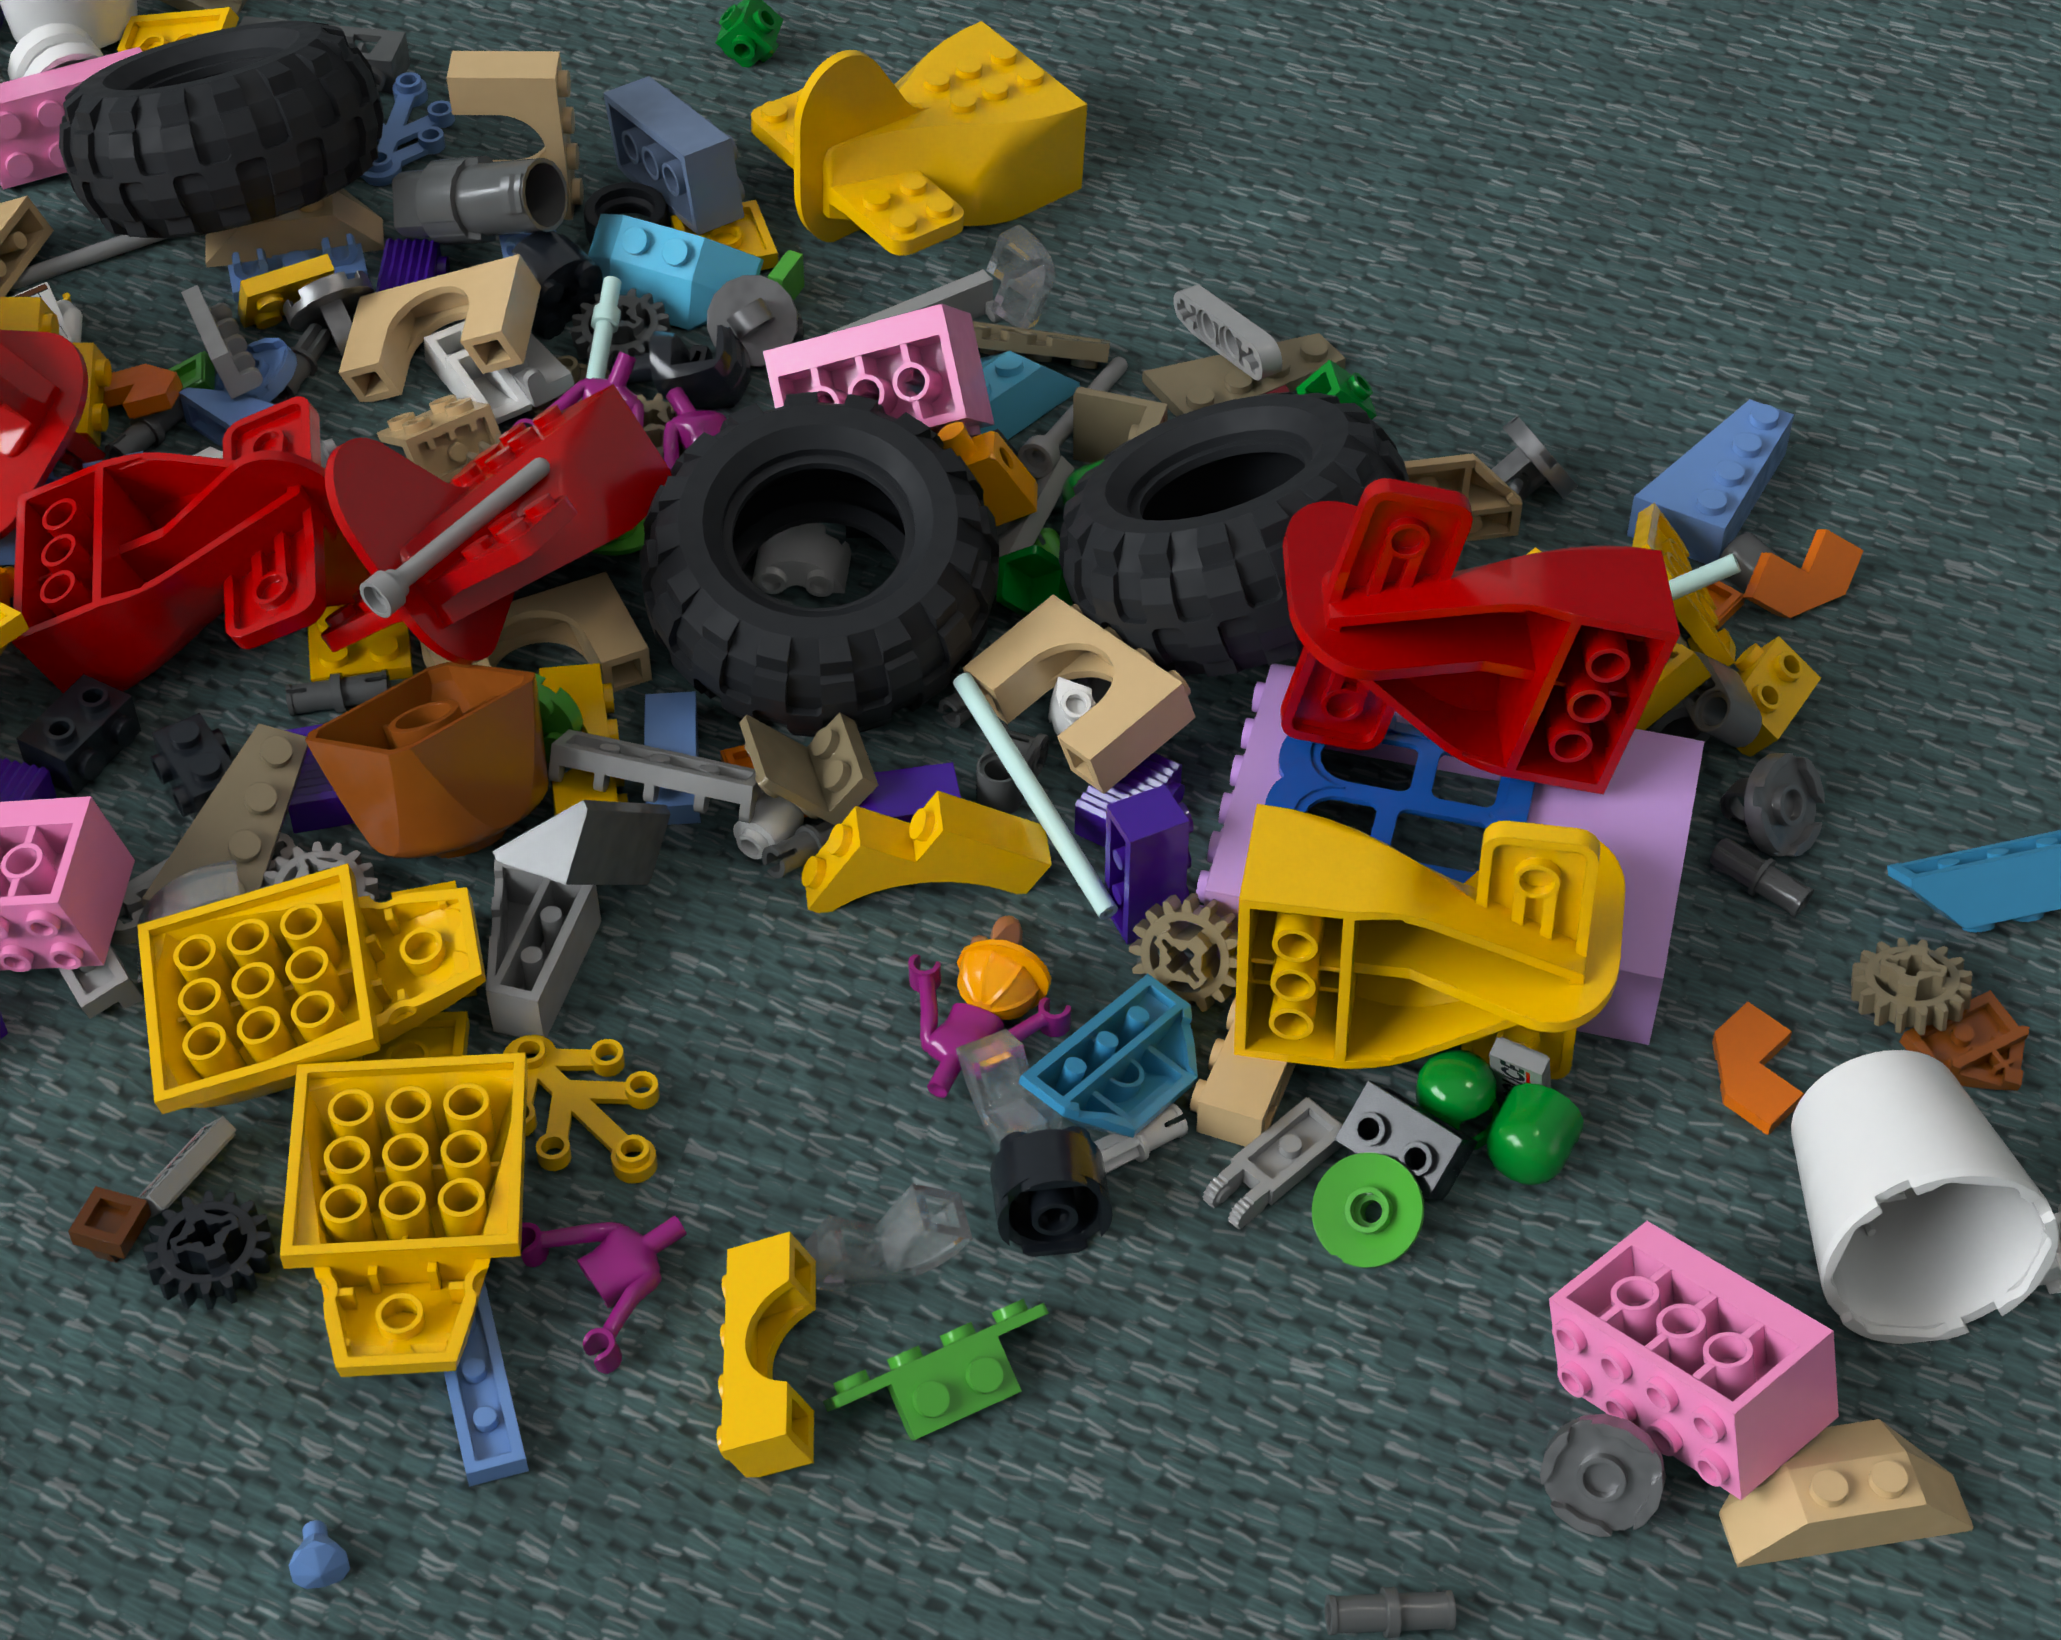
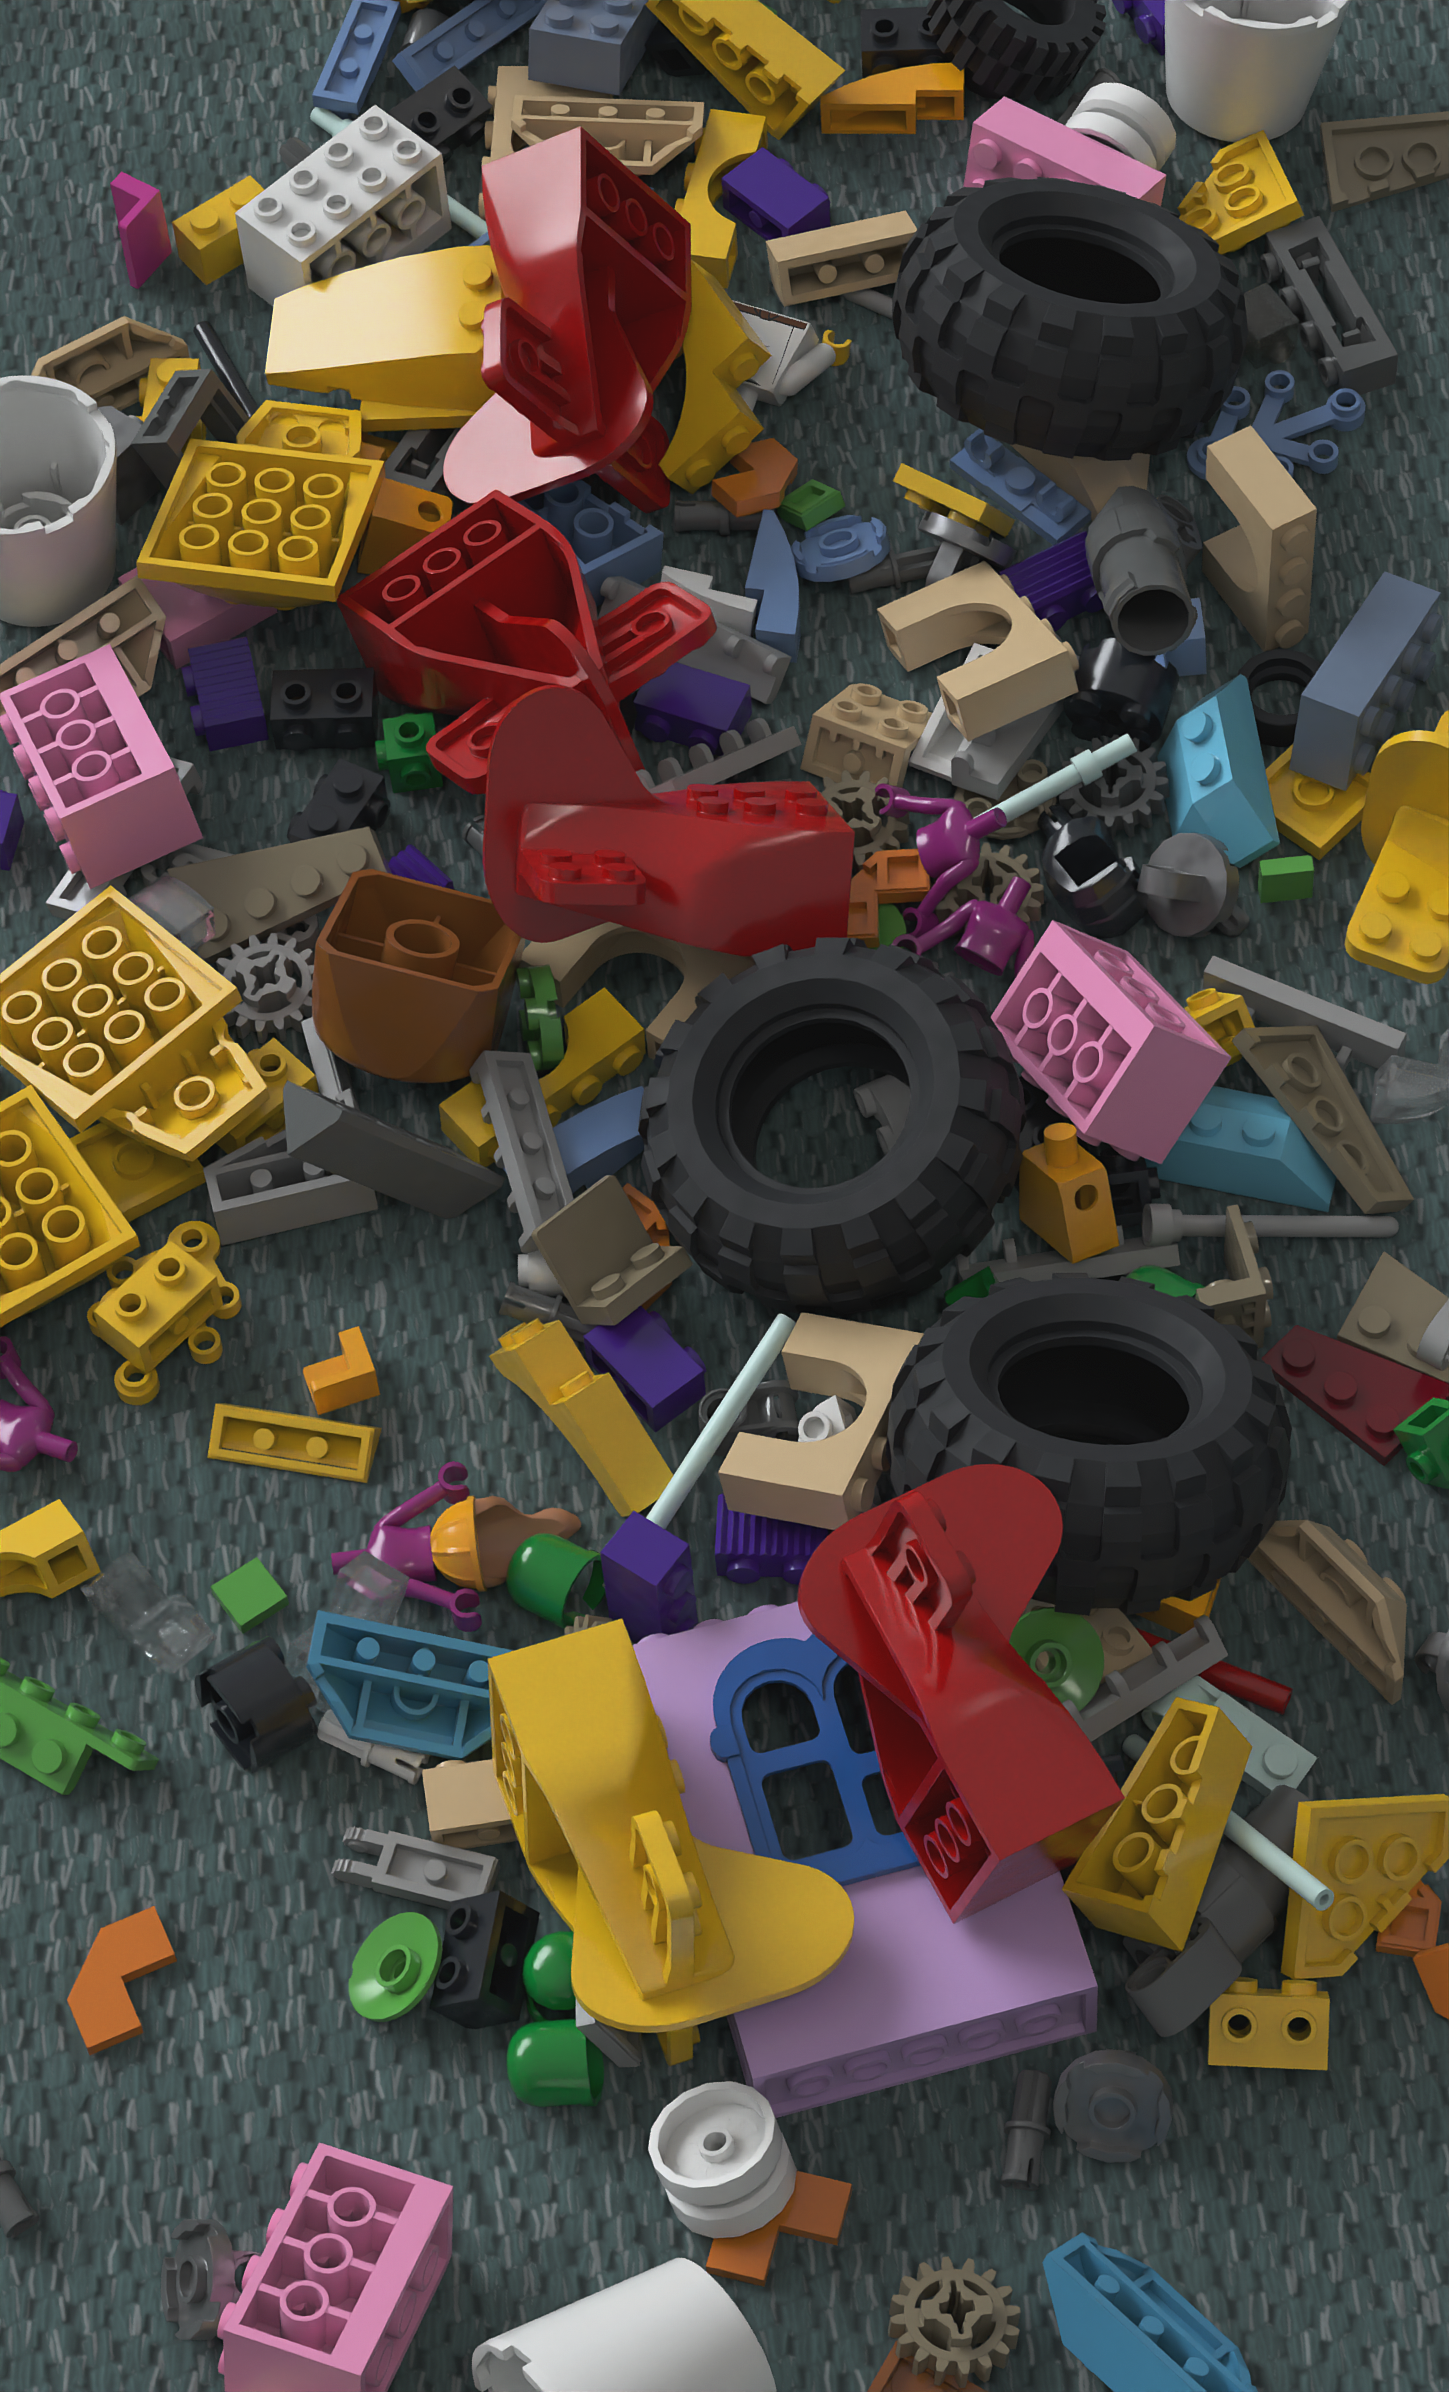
camera: 65 degrees right, 10 degrees up
(180, 692) = (406, 754): none -> green brick
(223, 343) = (844, 494): light grey hinge -> none
(387, 590) = (474, 824): light grey piece -> none
(413, 874) = (329, 1069): none -> light grey tile
(592, 1089) = (158, 1306): none -> yellow brick
(751, 1005) = (343, 1378): none -> light orange panel
(782, 1073) = (293, 1438): none -> yellow slope
(915, 1163) = (249, 1595): none -> bright green tile
(1071, 942) = (544, 1573): none -> green helmet
(1247, 1451) = (116, 1957): none -> orange tile
(1697, 1055) = (722, 2159): none -> white wheel

